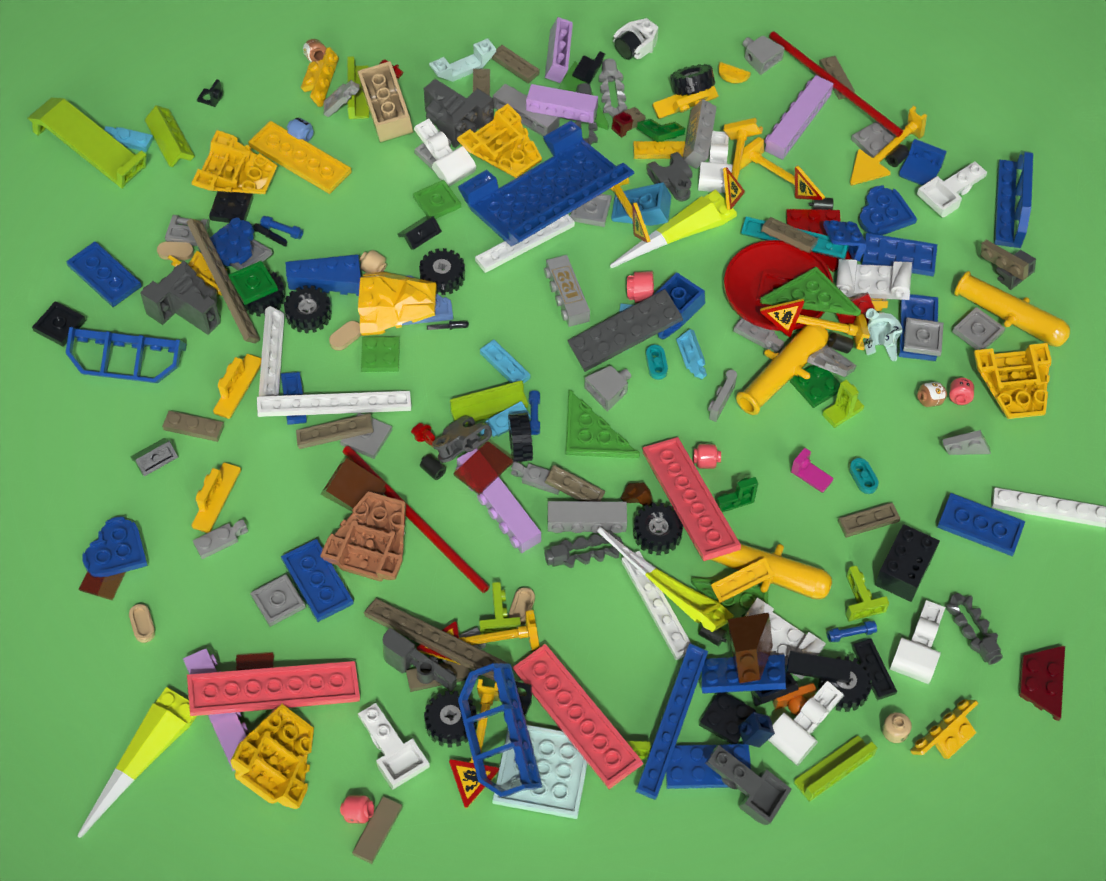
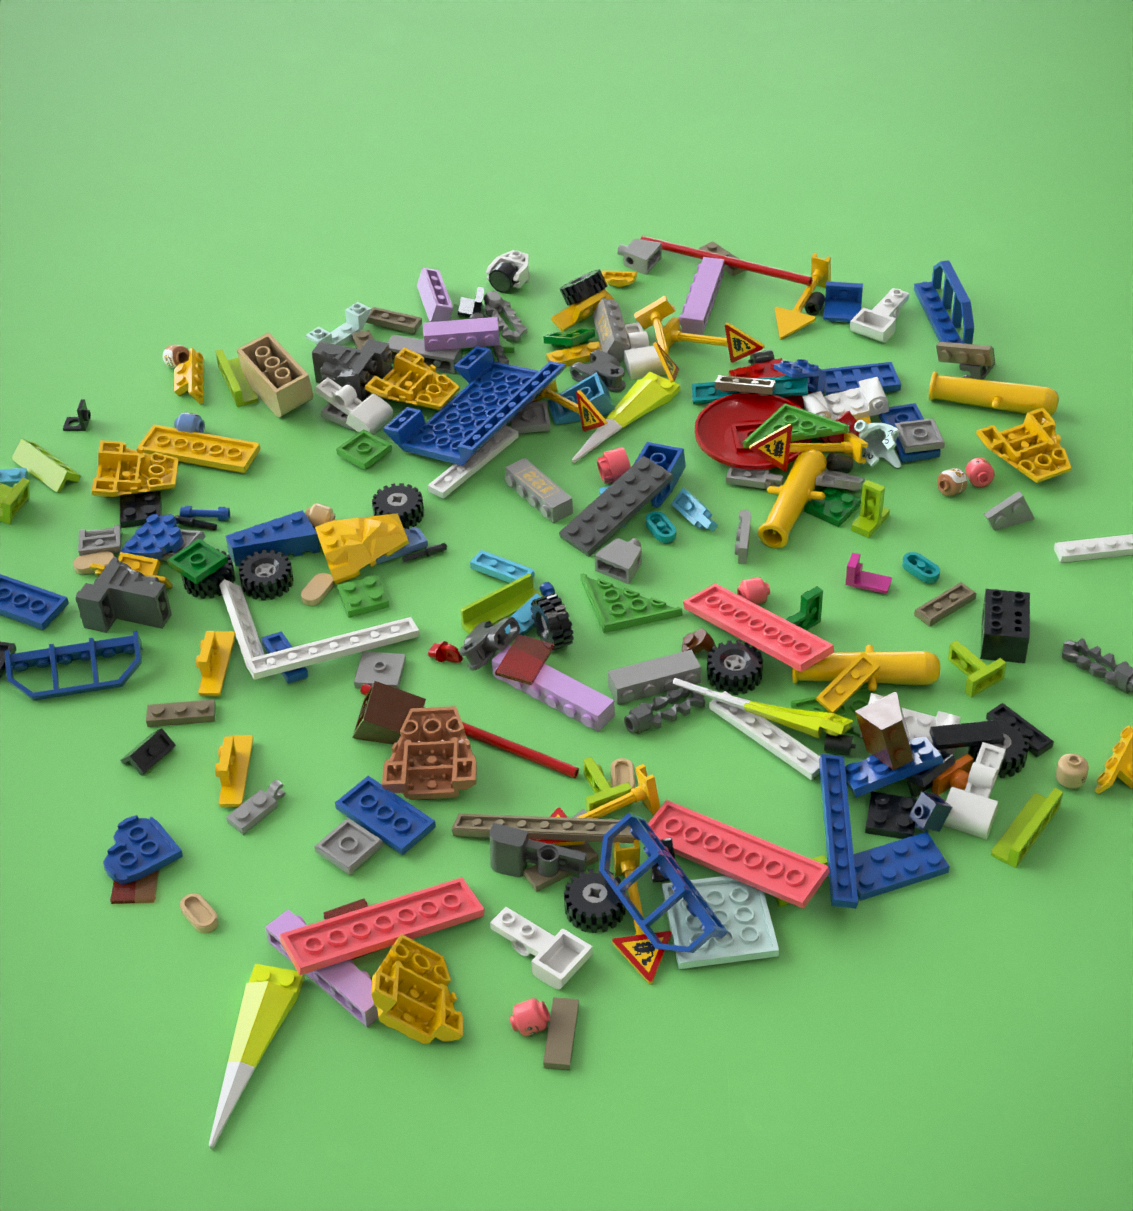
camera: 15 degrees left, 15 degrees down
(221, 278) = (166, 572): dark tan tile -> none
(334, 431) = (344, 673): dark tan tile -> none
(340, 97) = (222, 384): light grey hinge -> none
(420, 231) = (359, 479): black panel -> none
(432, 467) = (467, 678): pearl dark grey piece -> none
(533, 476) = (584, 658): light grey plate -> none
(573, 485) = (624, 652): dark tan tile -> none
(626, 121) = (531, 338): dark red leg -> none
(763, 792) = (967, 867): dark grey plate -> none
(868, 627) = (994, 695): blue bar -> none
(872, 139) = (783, 296): light grey plate -> none
(885, 212) = (828, 348): blue plate -> none
(915, 656) = (1054, 704): white plate -> none
(978, 329) = (967, 419): light grey plate -> none
(981, 524) = (1059, 576): blue plate -> none

